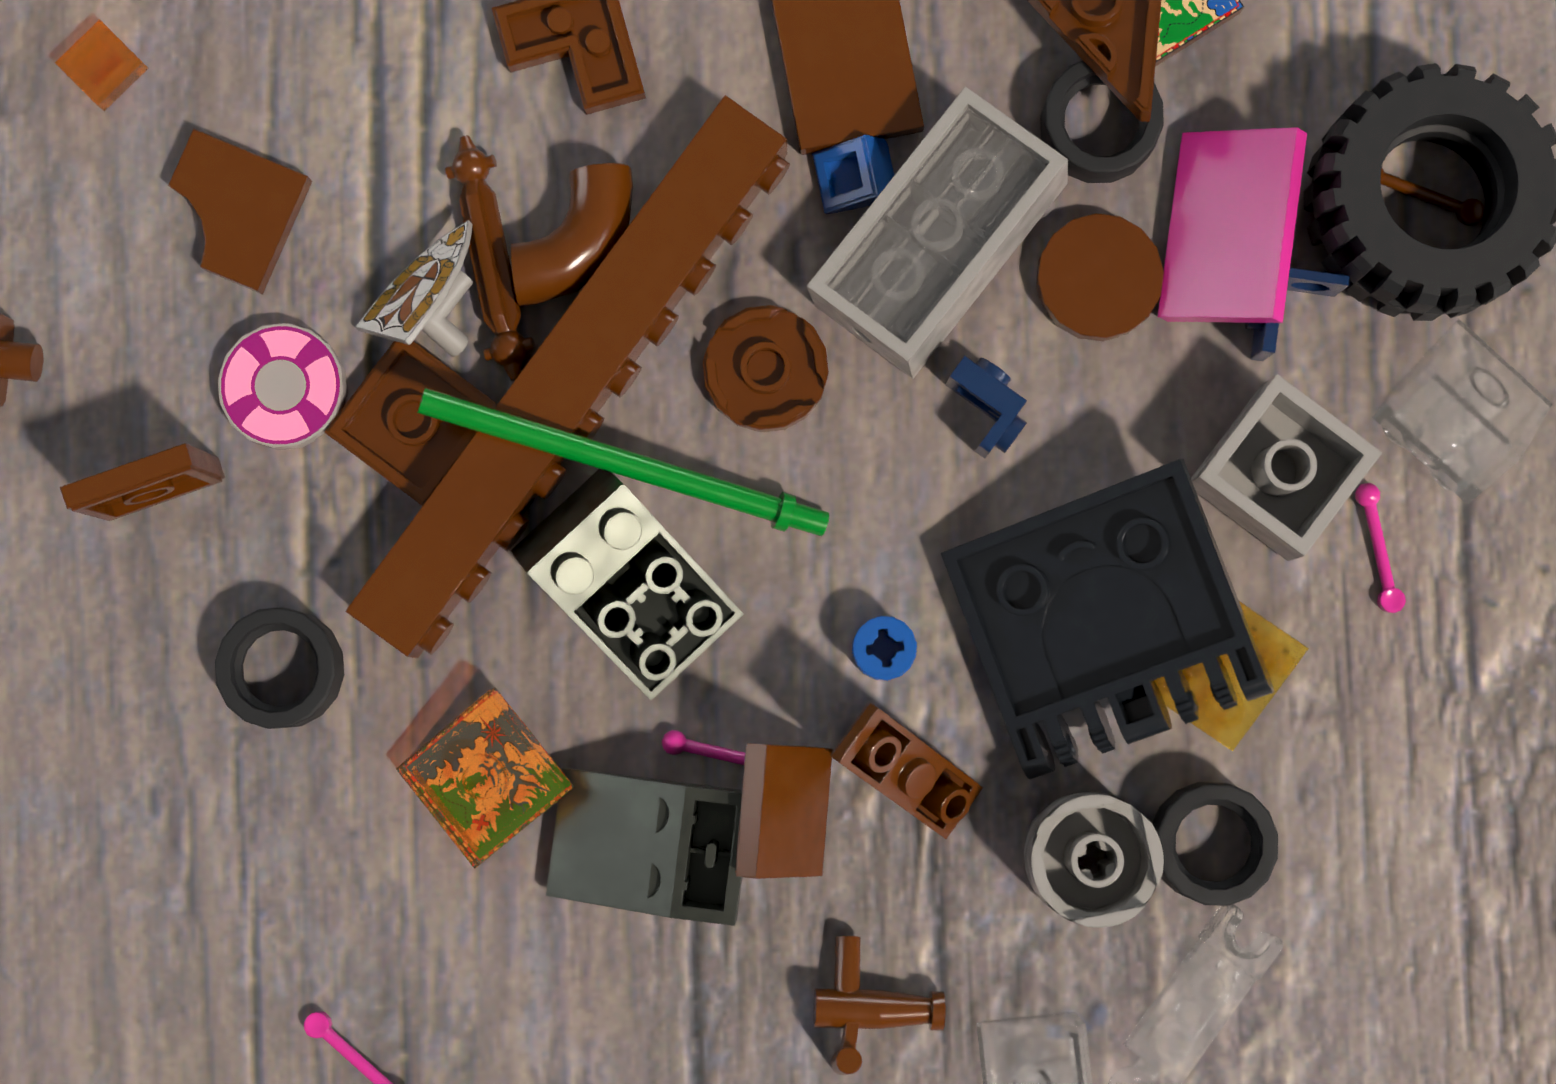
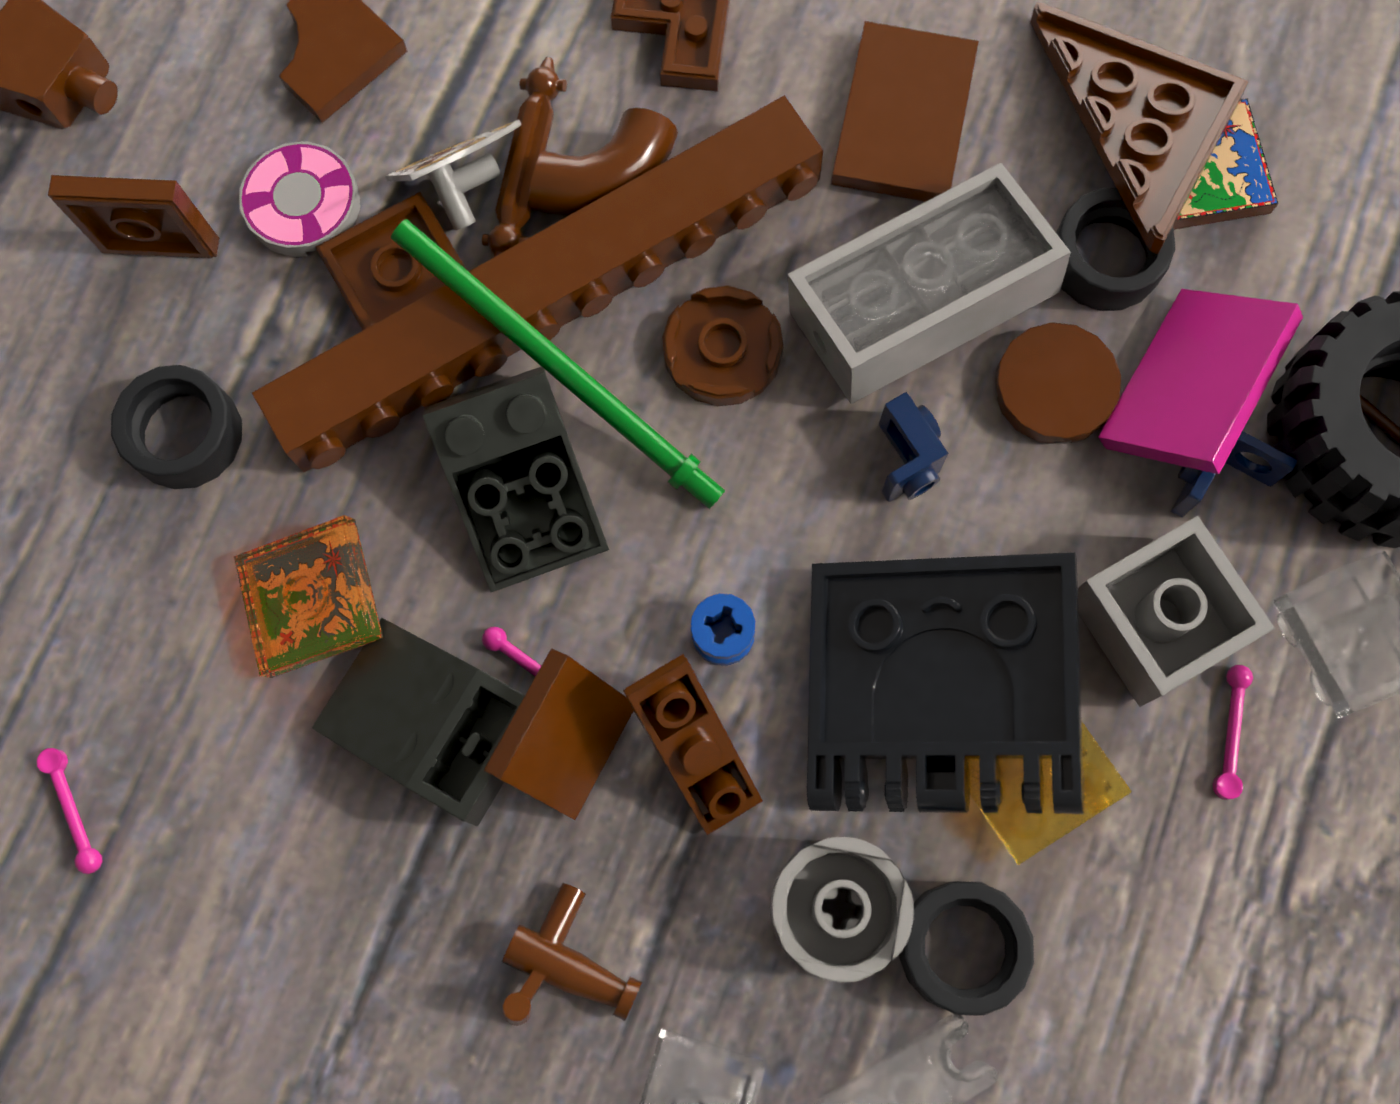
camera: 20 degrees right, 10 degrees down
(853, 173) = (867, 206): blue slope -> none

